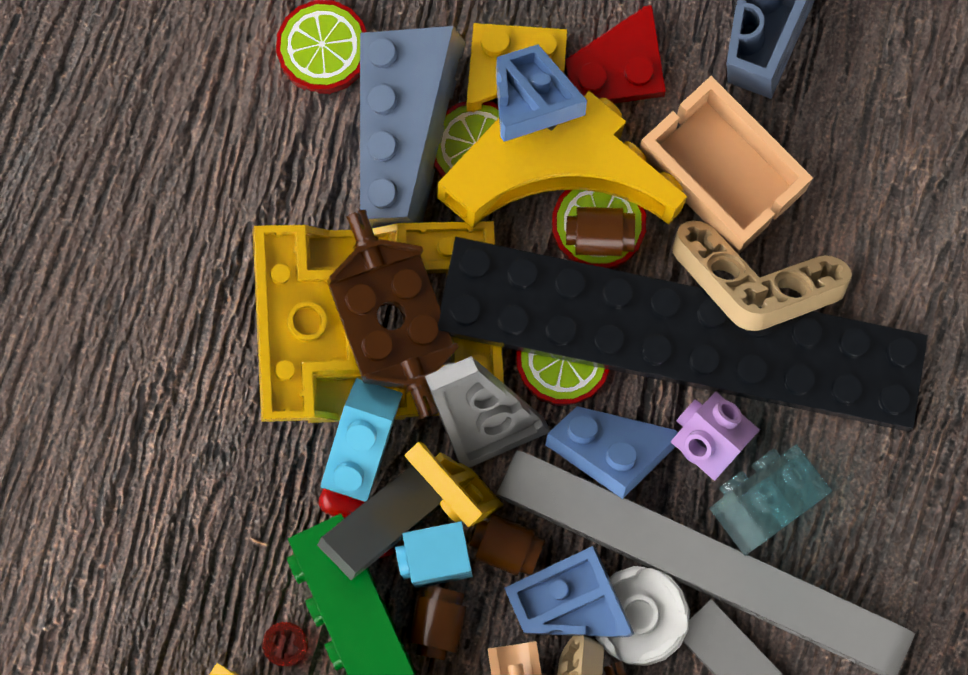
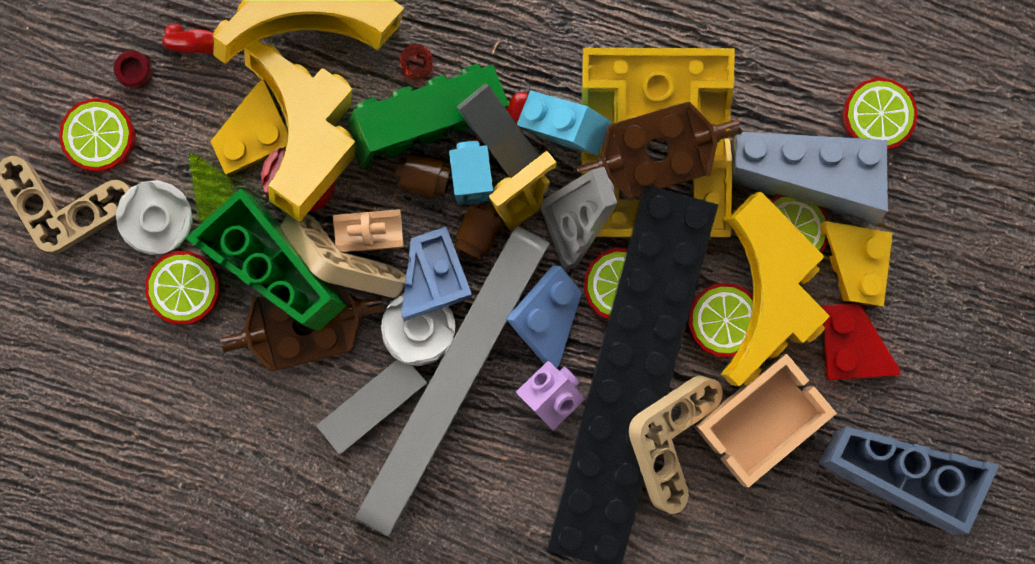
camera: 90 degrees right, 5 degrees up
(534, 93) = (828, 270): medium blue wing -> none
(601, 231) = (716, 318): reddish brown brick -> none
(769, 499) = (497, 433): clear light blue brick -> none

